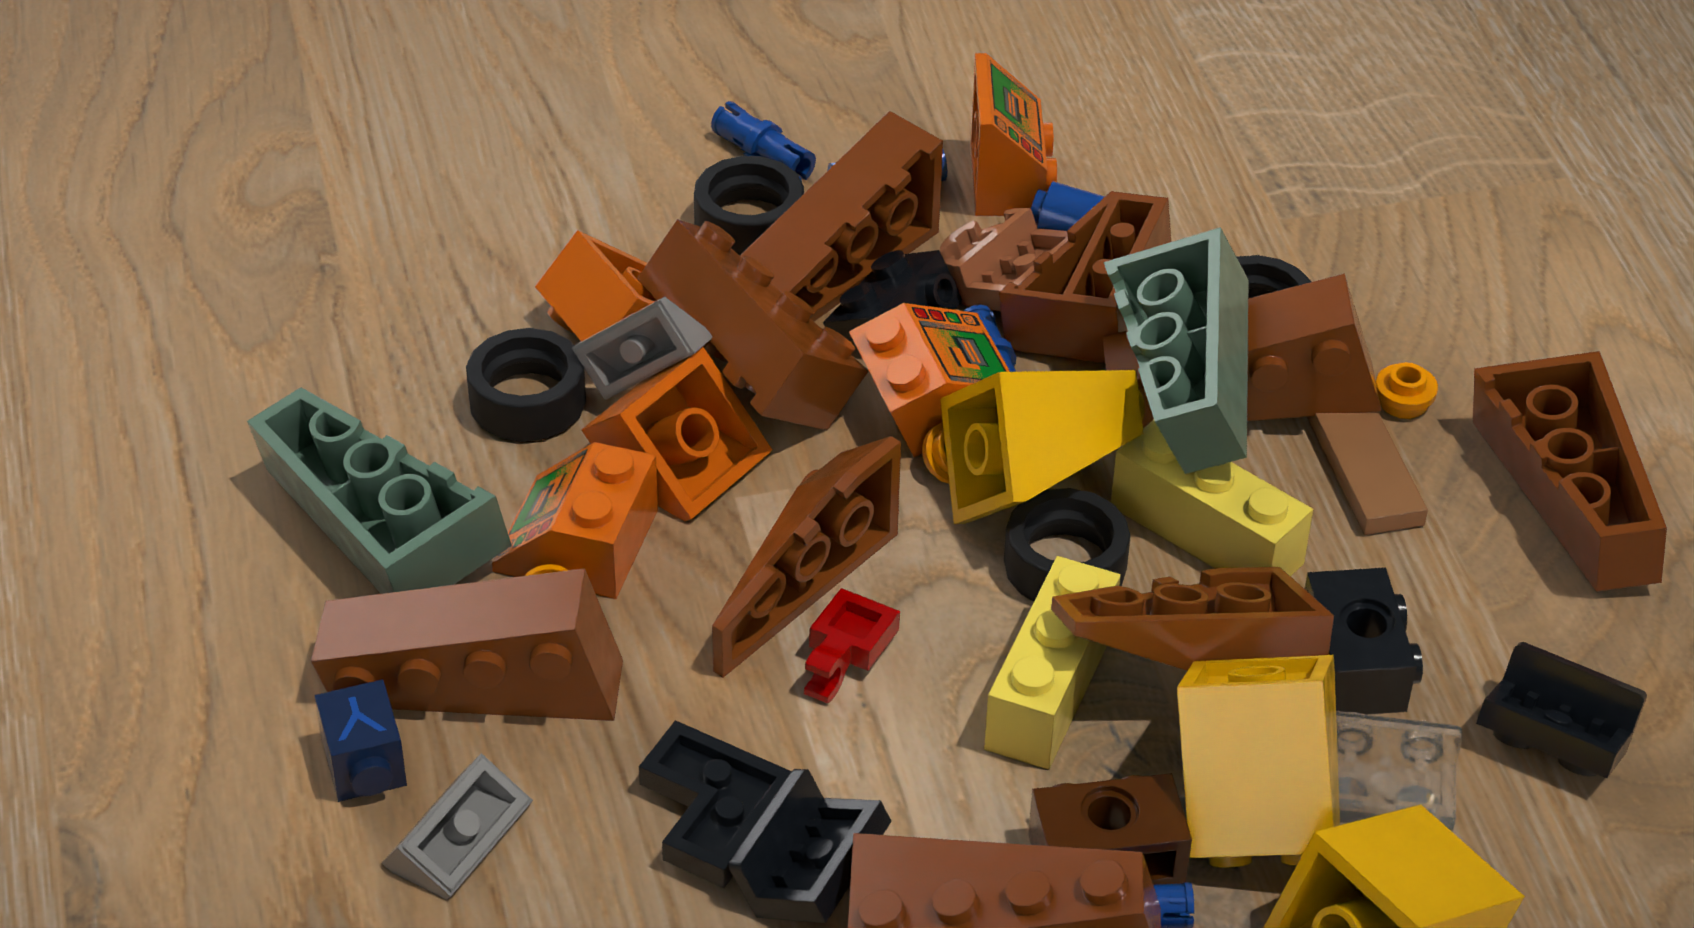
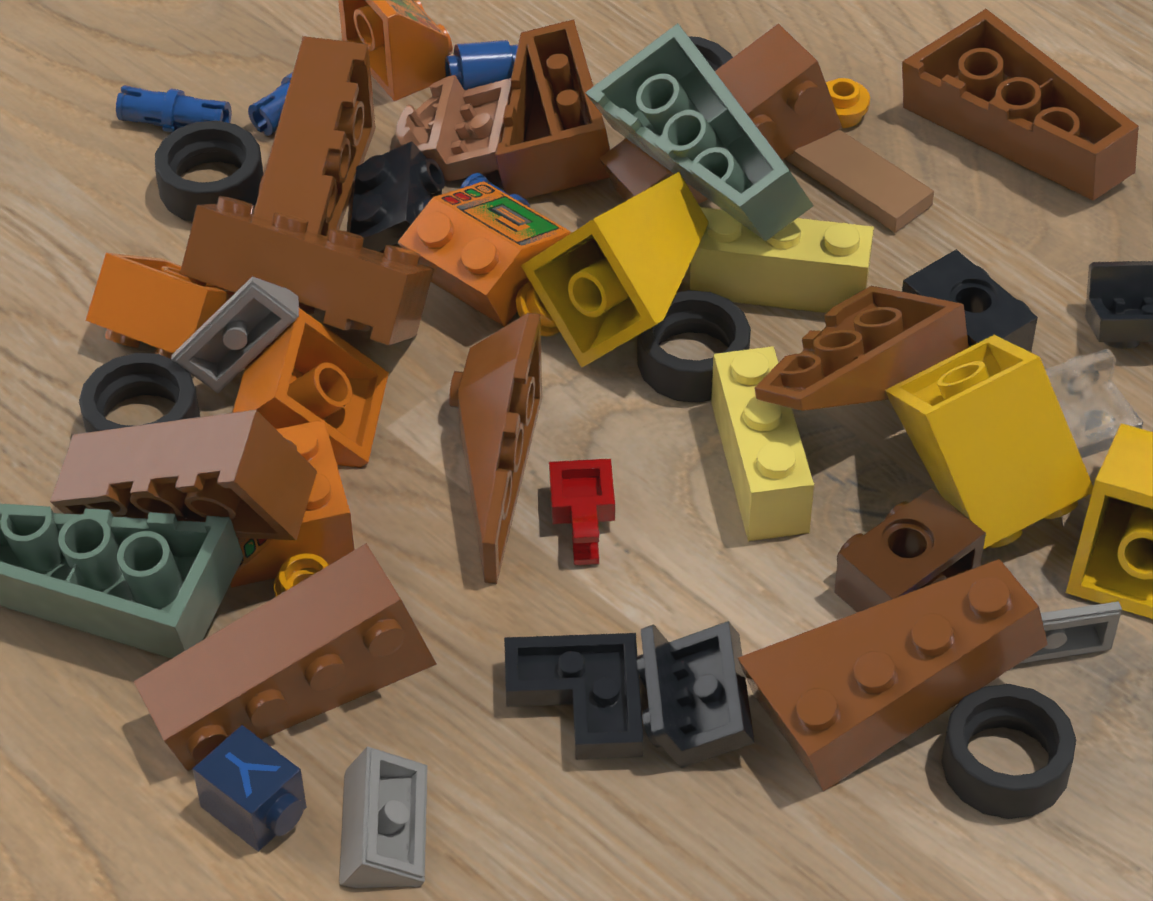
camera: 30 degrees left, 5 degrees up
(502, 445) = (194, 470): none -> dark orange wedge

